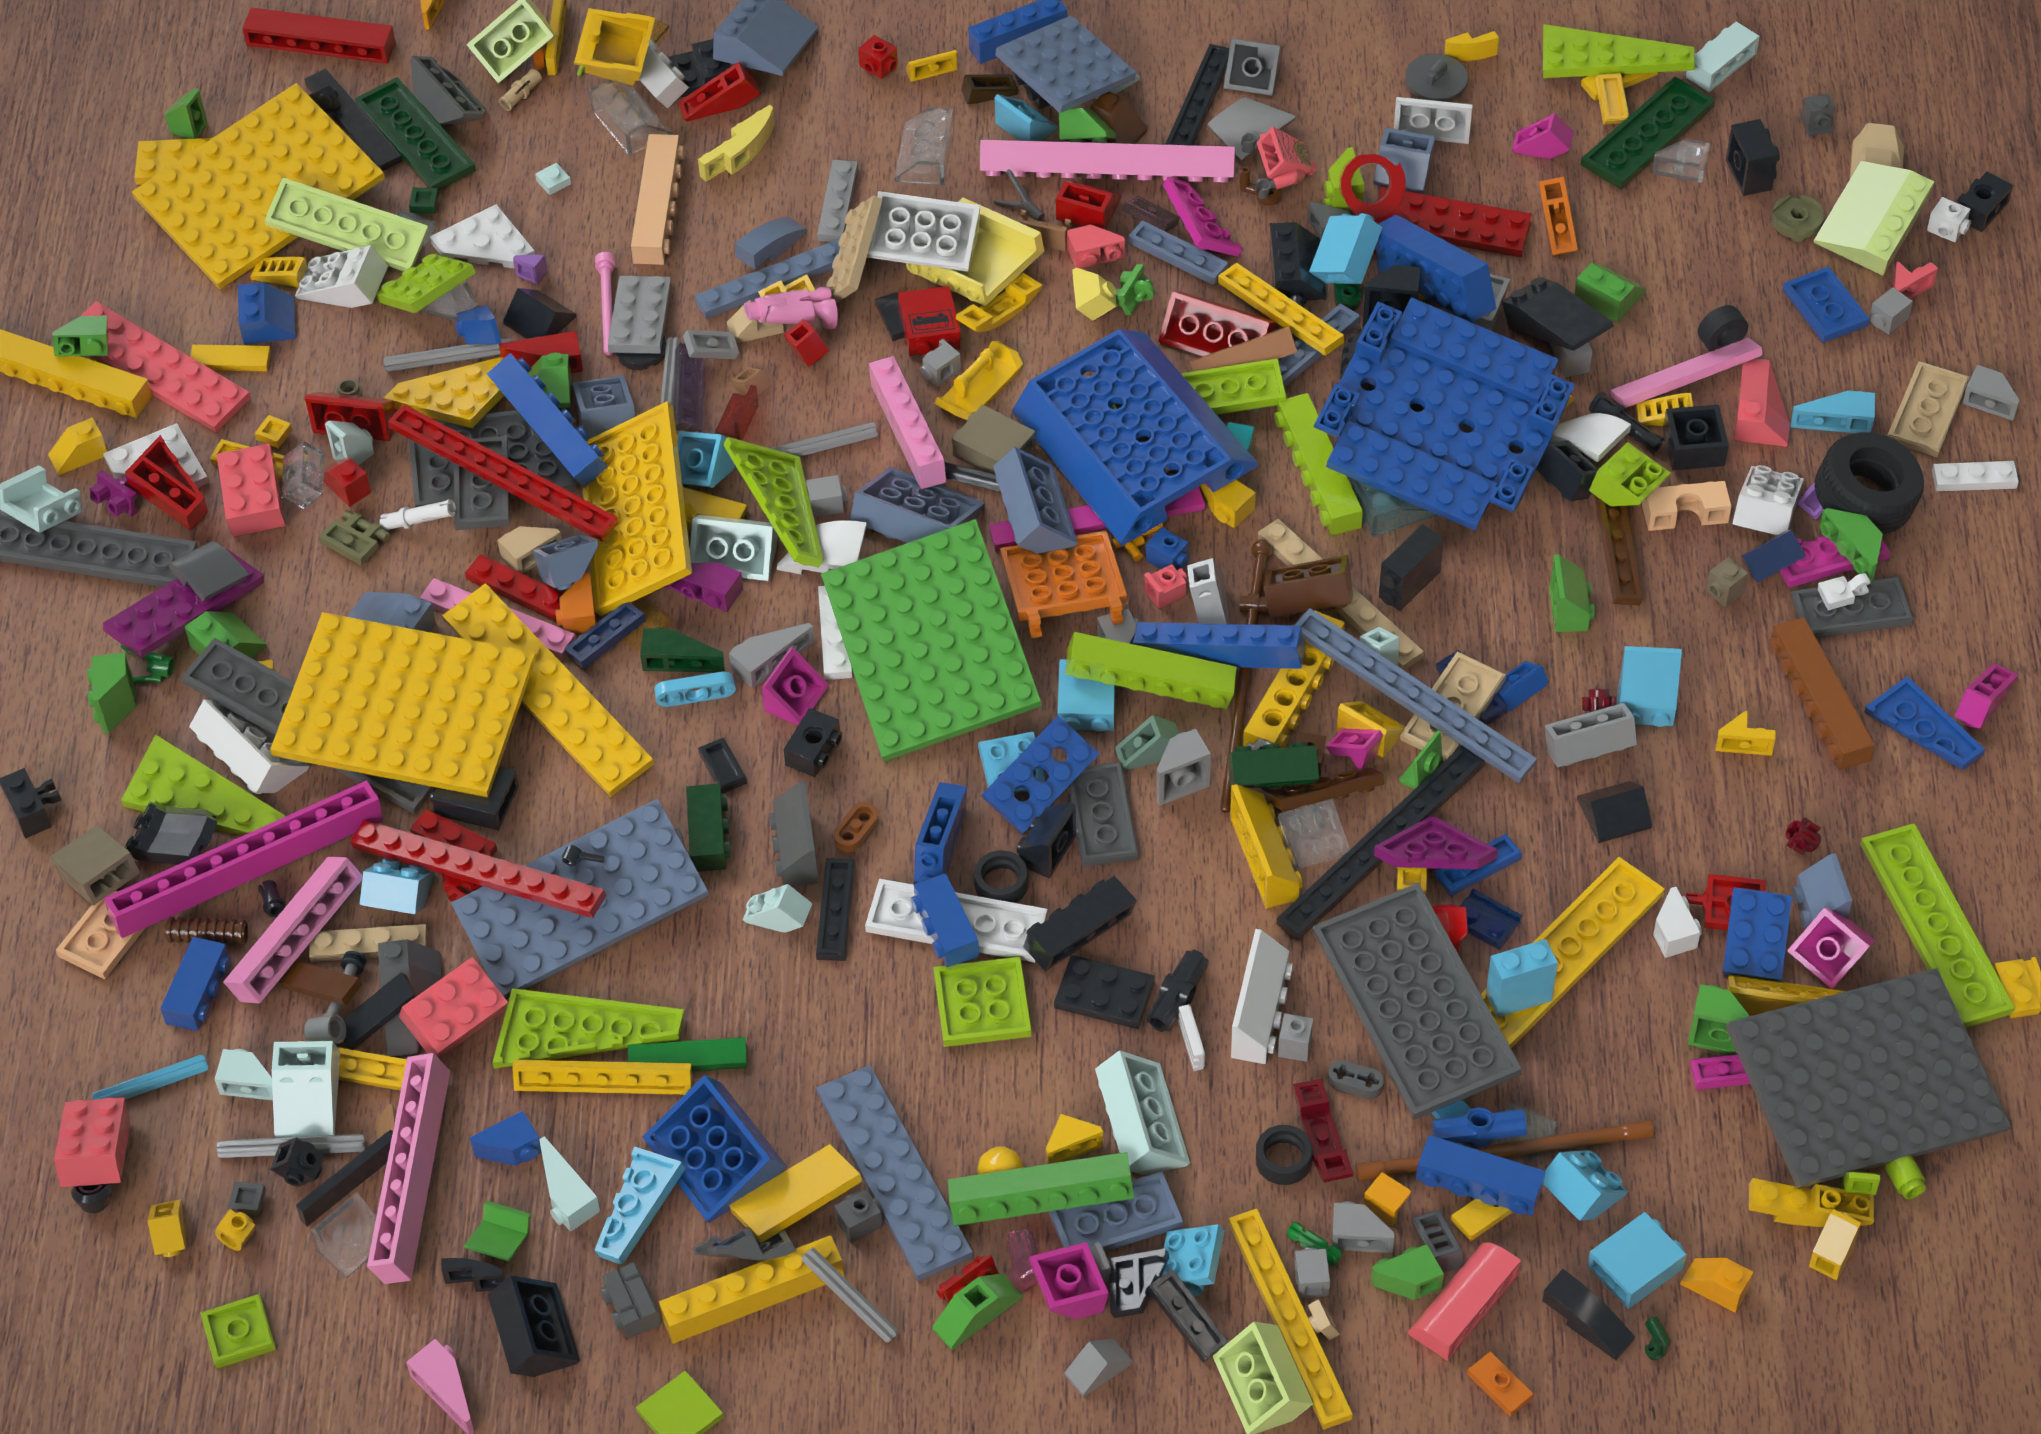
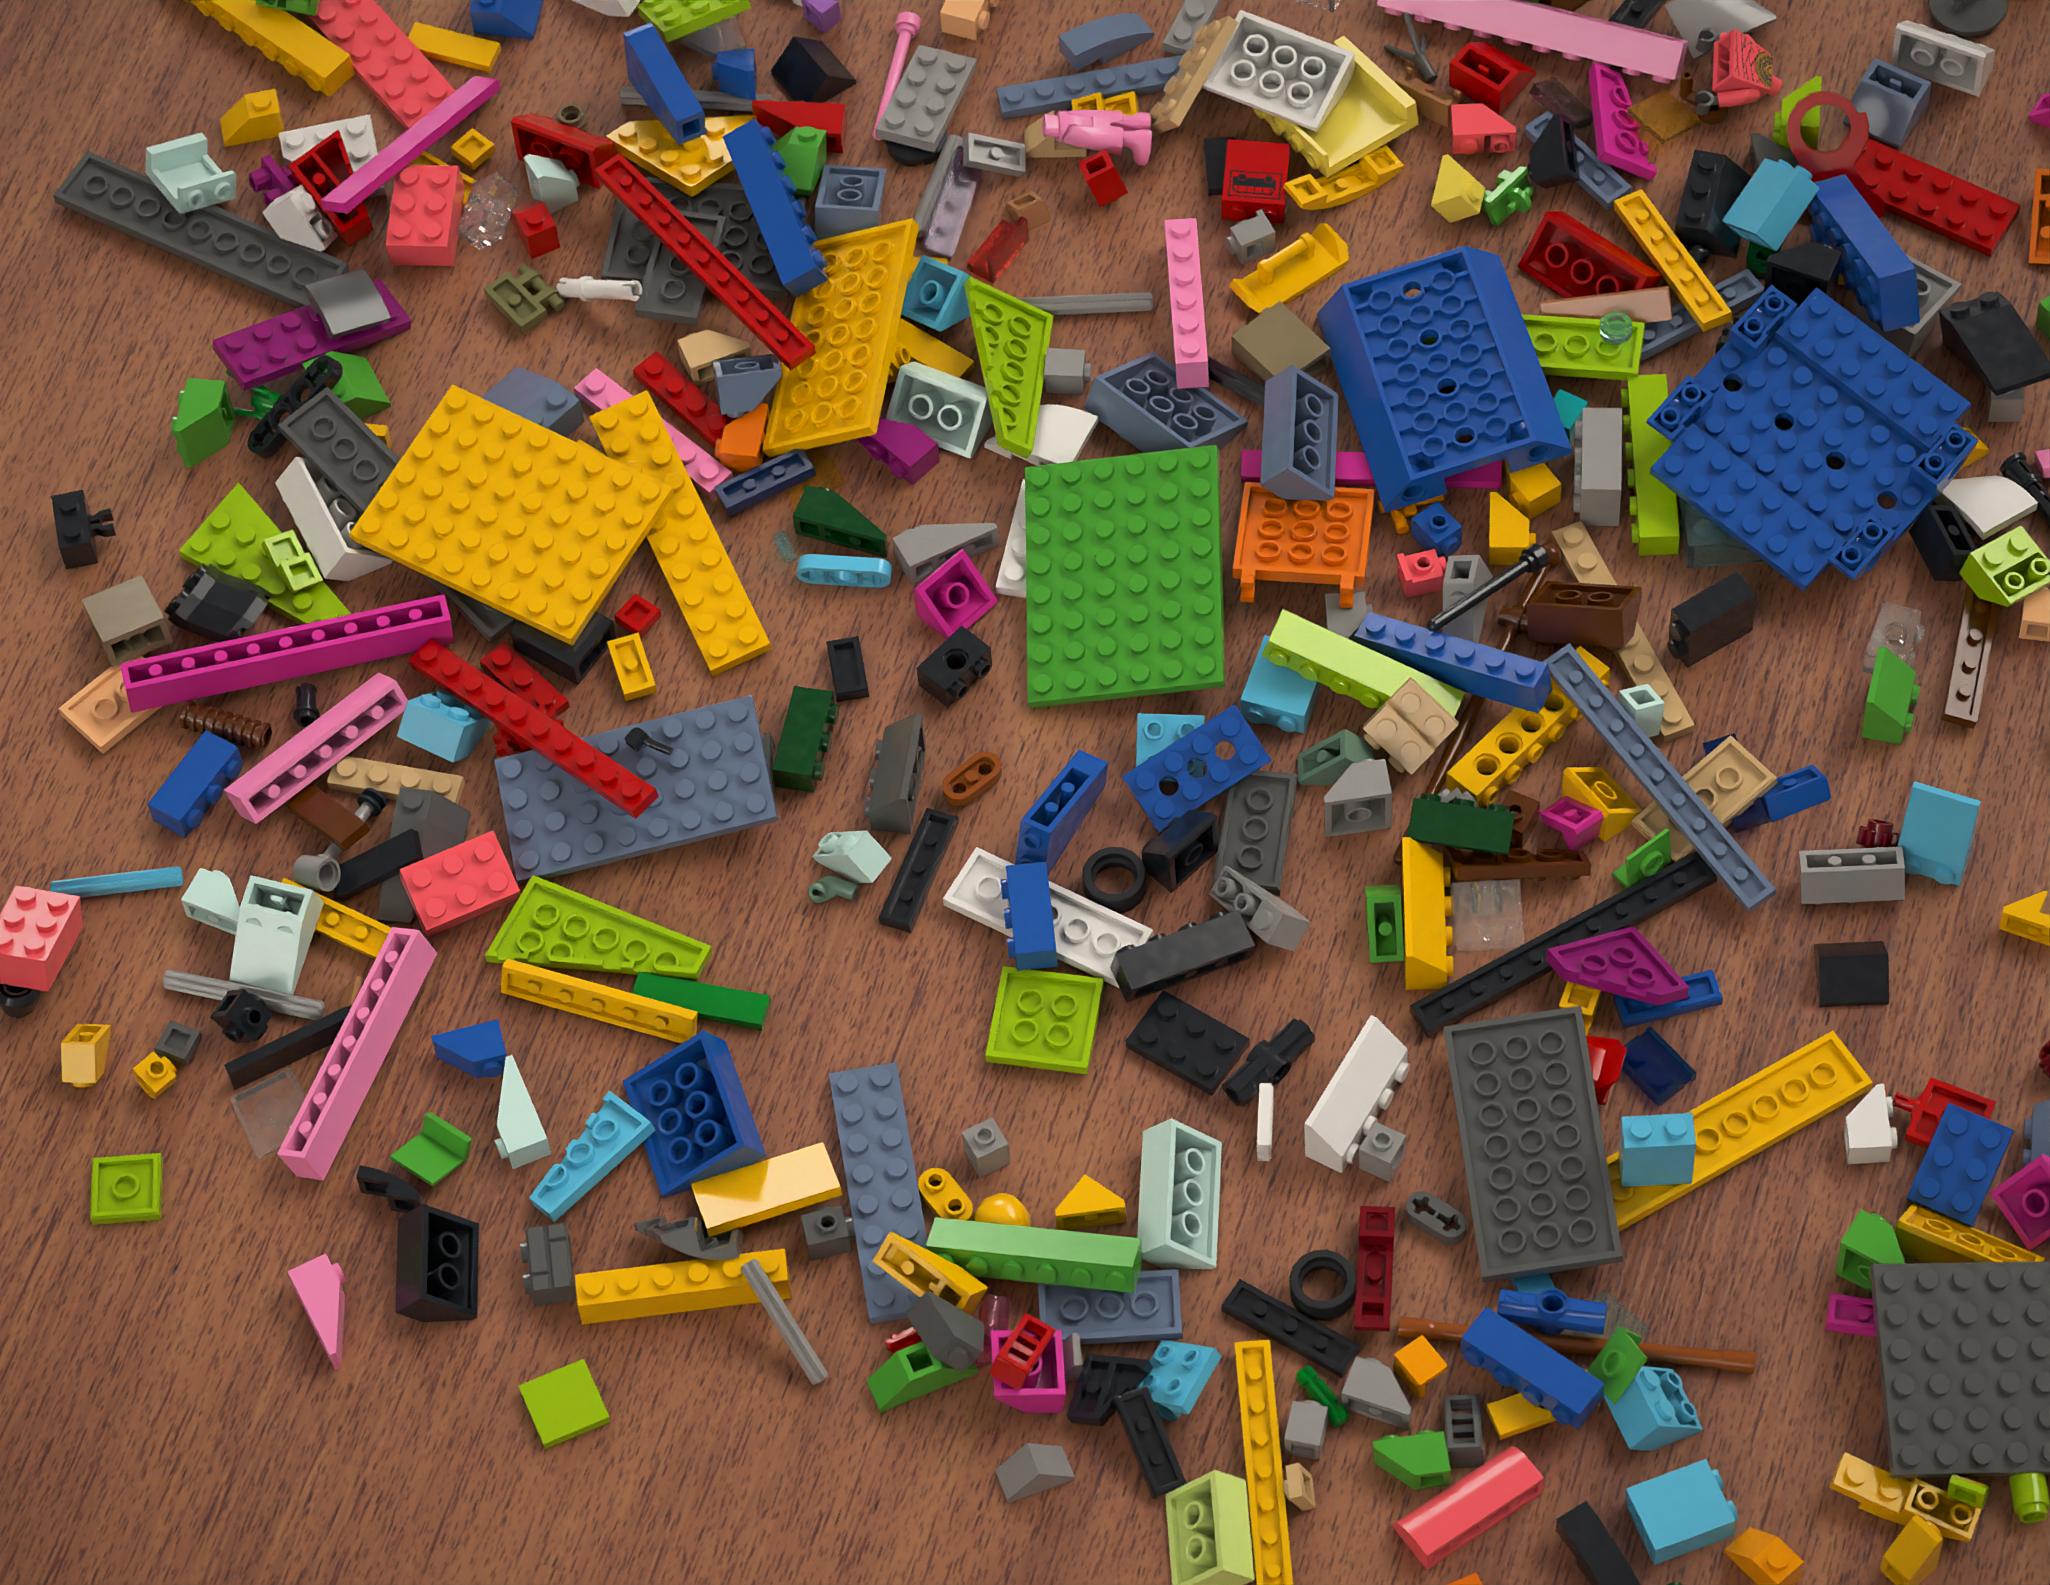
camera: 20 degrees right, 5 degrees up
(144, 515) = (299, 220): none -> white slope
(185, 659) = (291, 402): none -> black beam
(222, 436) = (410, 144): none -> dark pink tile
(224, 788) = (291, 562): none -> lime slope
(421, 345) = (662, 84): none -> blue slope
(533, 763) = (637, 615): none -> red plate
(541, 804) = (631, 666): none -> yellow plate
(638, 681) = (784, 547): none -> clear light blue tile
(767, 939) = (831, 887): none -> sand green arm
(946, 1162) = (945, 1195): none -> yellow plate
(961, 1227) = (925, 1271): none -> yellow slope
(969, 1113) = (986, 1147): none -> light grey brick
(993, 1266) = (947, 1331): none -> dark grey slope
(1062, 1267) = (1013, 1369): none -> red slope
(1131, 872) = (1260, 910): none -> light grey slope
(1161, 251) = (1554, 154): none -> black slope
(1202, 701) = (1409, 726): none -> tan plate
(1224, 540) = (1507, 532): none -> yellow slope
(1233, 206) = (1663, 116): none -> clear yellow piece
(1233, 859) = (1384, 923): none -> bright green slope
(1252, 555) = (1531, 560): none -> black piece
(1257, 366) = (1616, 328): none -> clear light blue tile
(1268, 1196) = (1290, 1328): none -> black tile
(1281, 473) = (1598, 466): none -> light grey brick
(1550, 1153) = (1618, 1362): none -> bright green piece
(1551, 541) = (1898, 625): none -> clear brick

